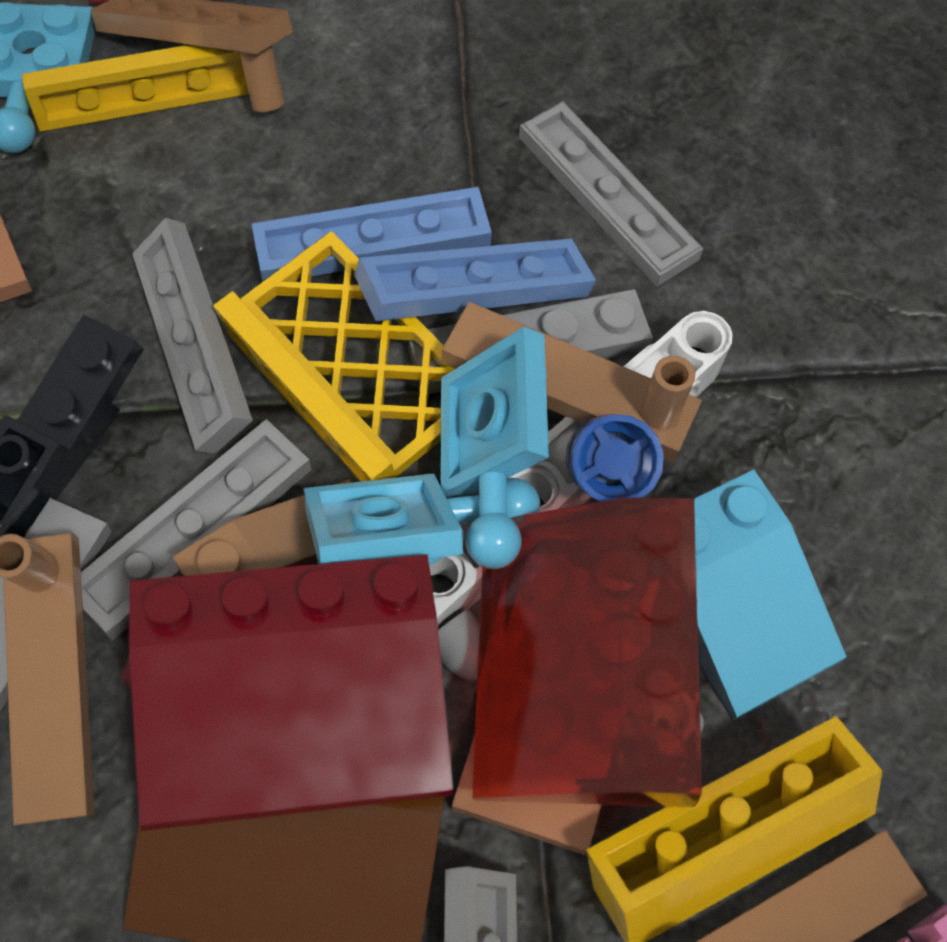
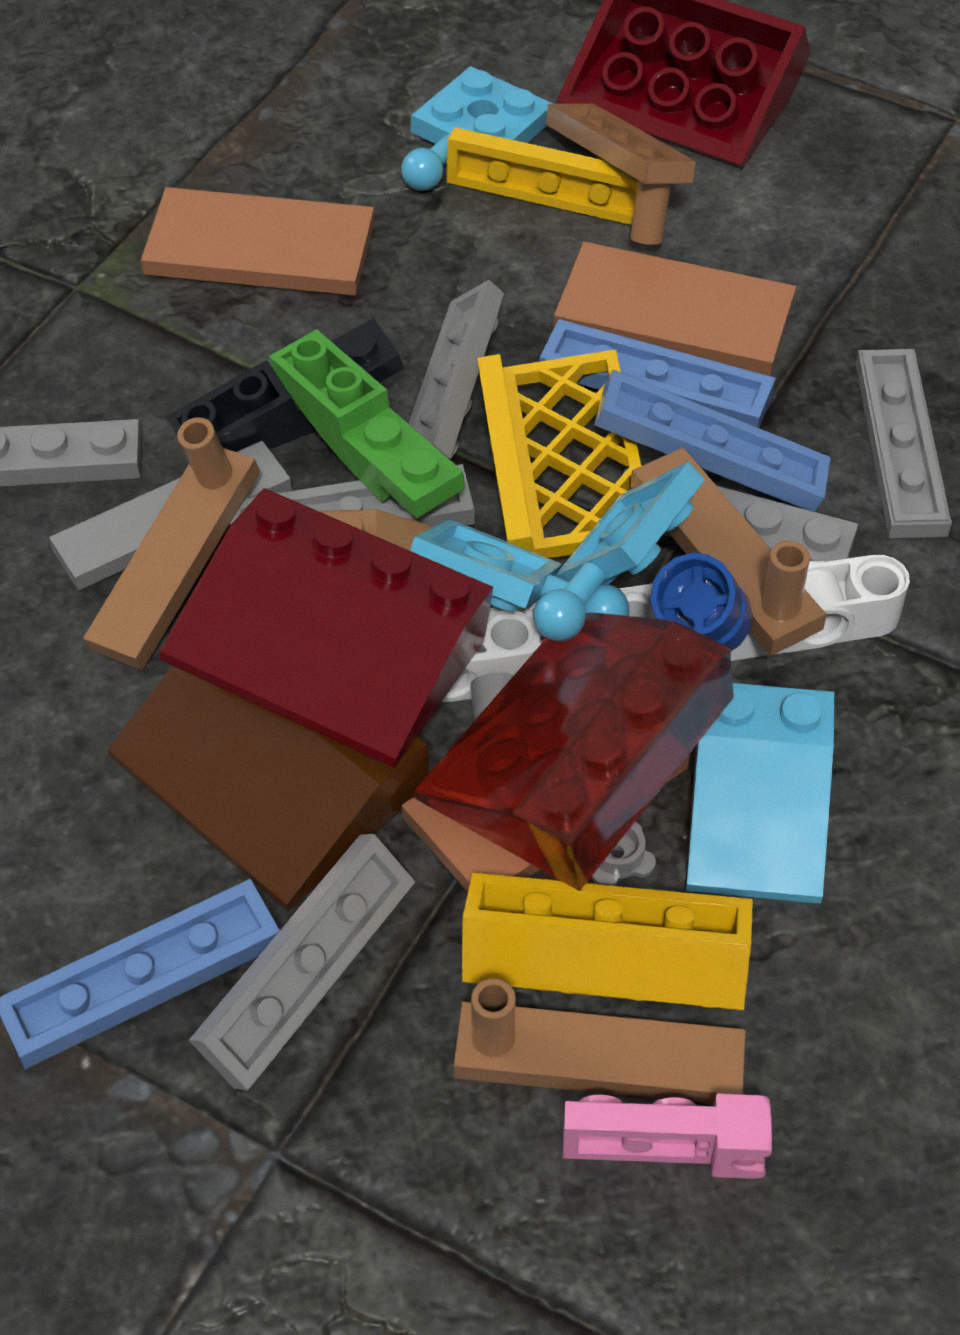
camera: 40 degrees right, 10 degrees down
(151, 438) = (362, 429): none -> bright green slope
(338, 158) = (678, 306): none -> nougat tile

